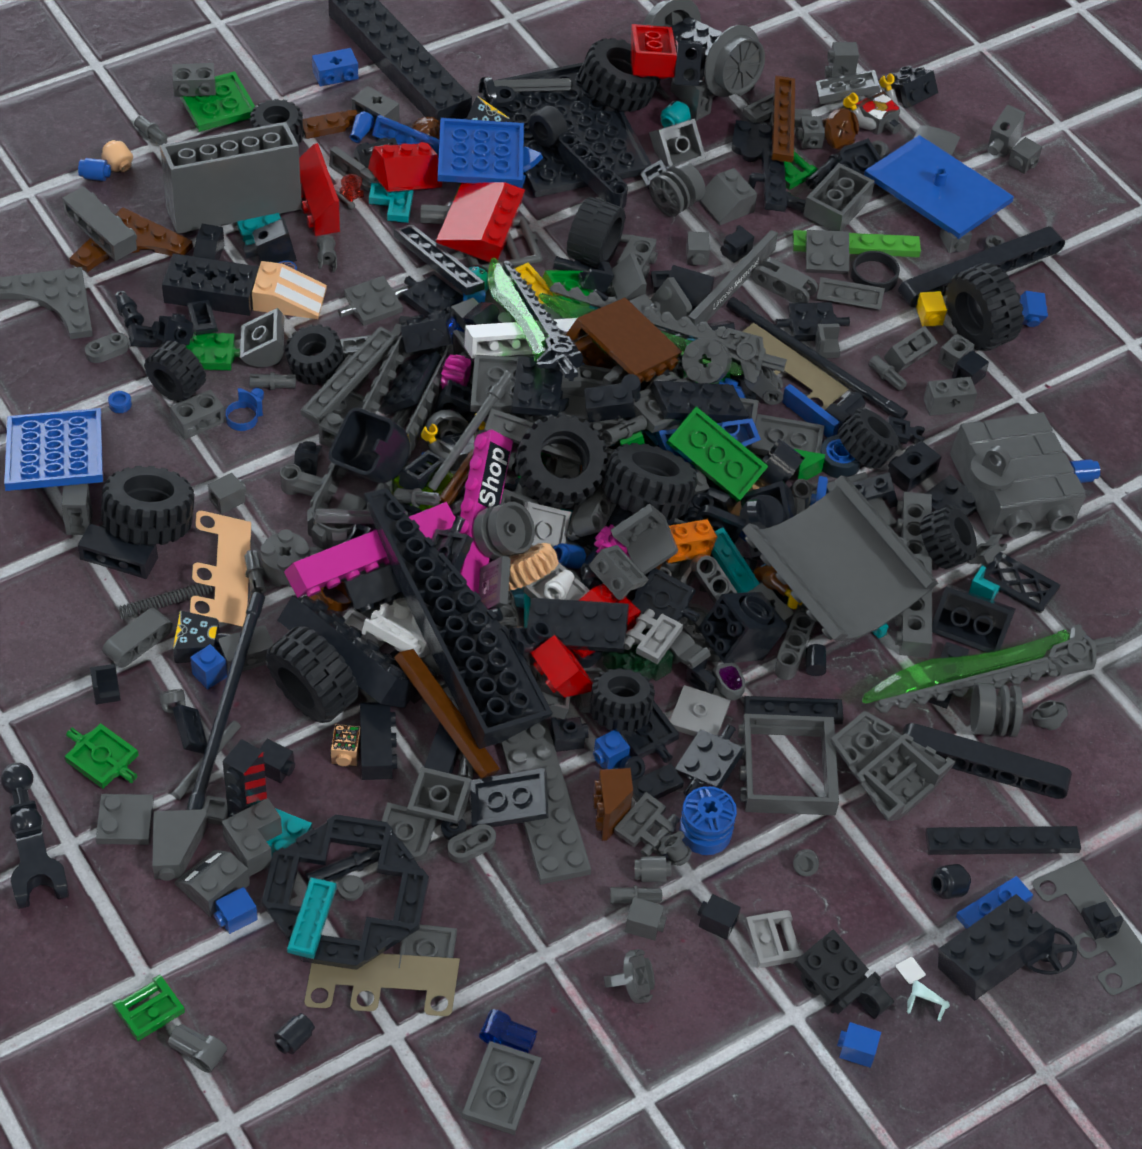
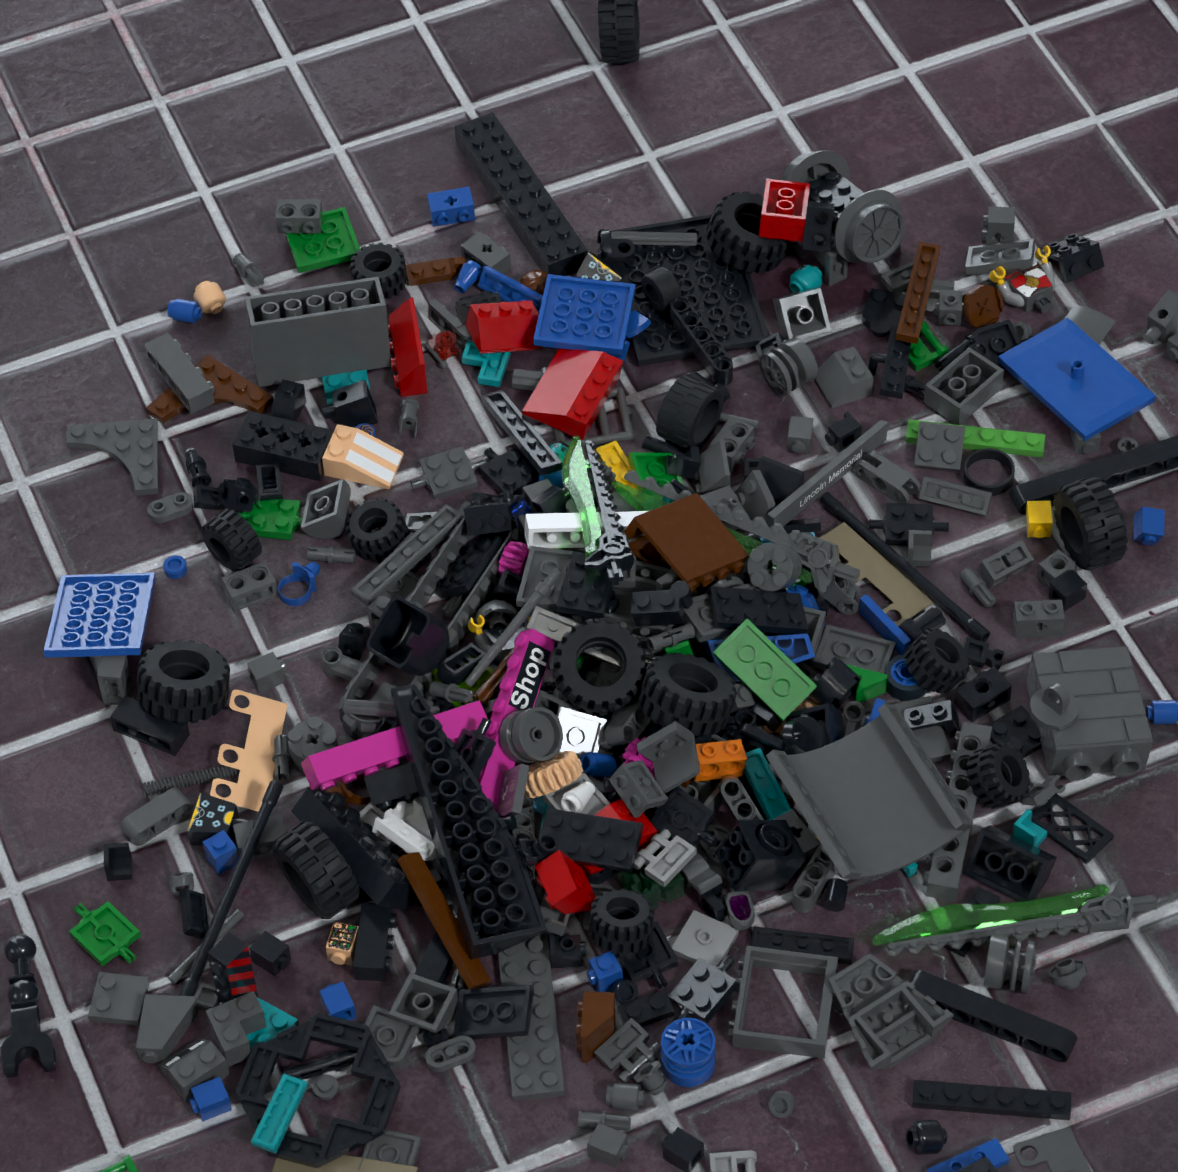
camera: 15 degrees right, 0 degrees up
(350, 801) = (337, 1001): none -> blue brick

